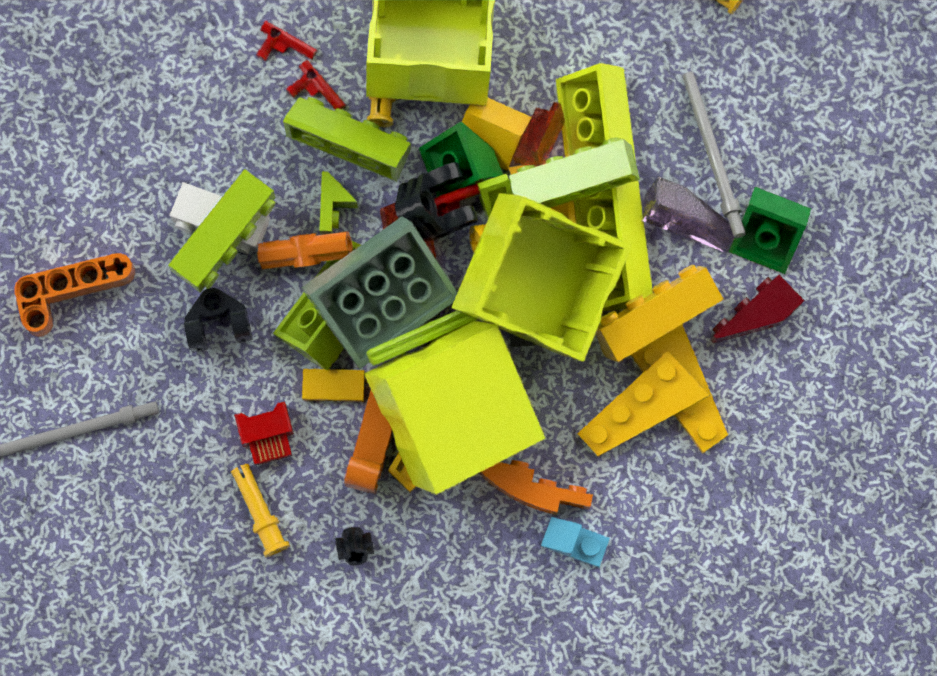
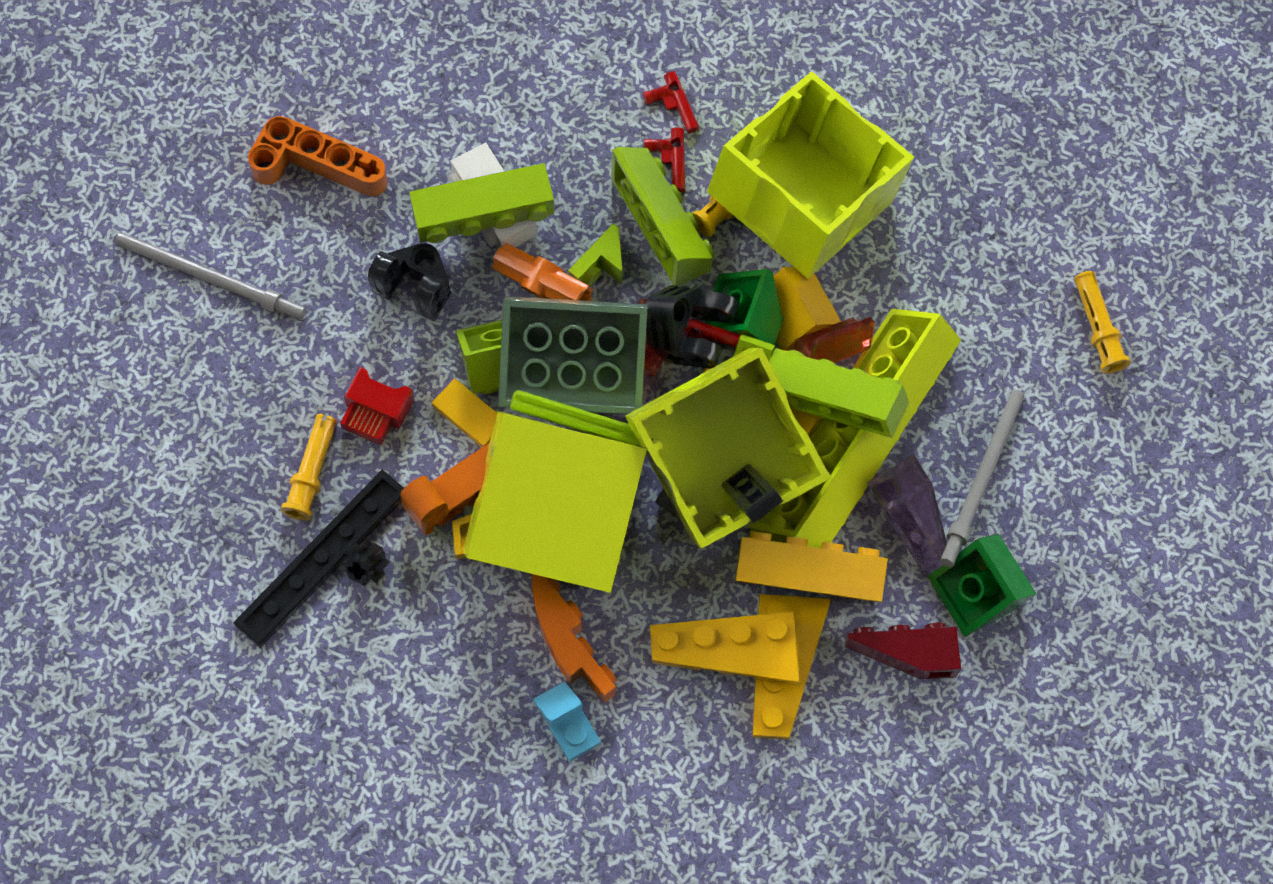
camera: 40 degrees right, 10 degrees down
(319, 566) = (319, 559): none -> black tile
(584, 296) = (751, 493): none -> black tile

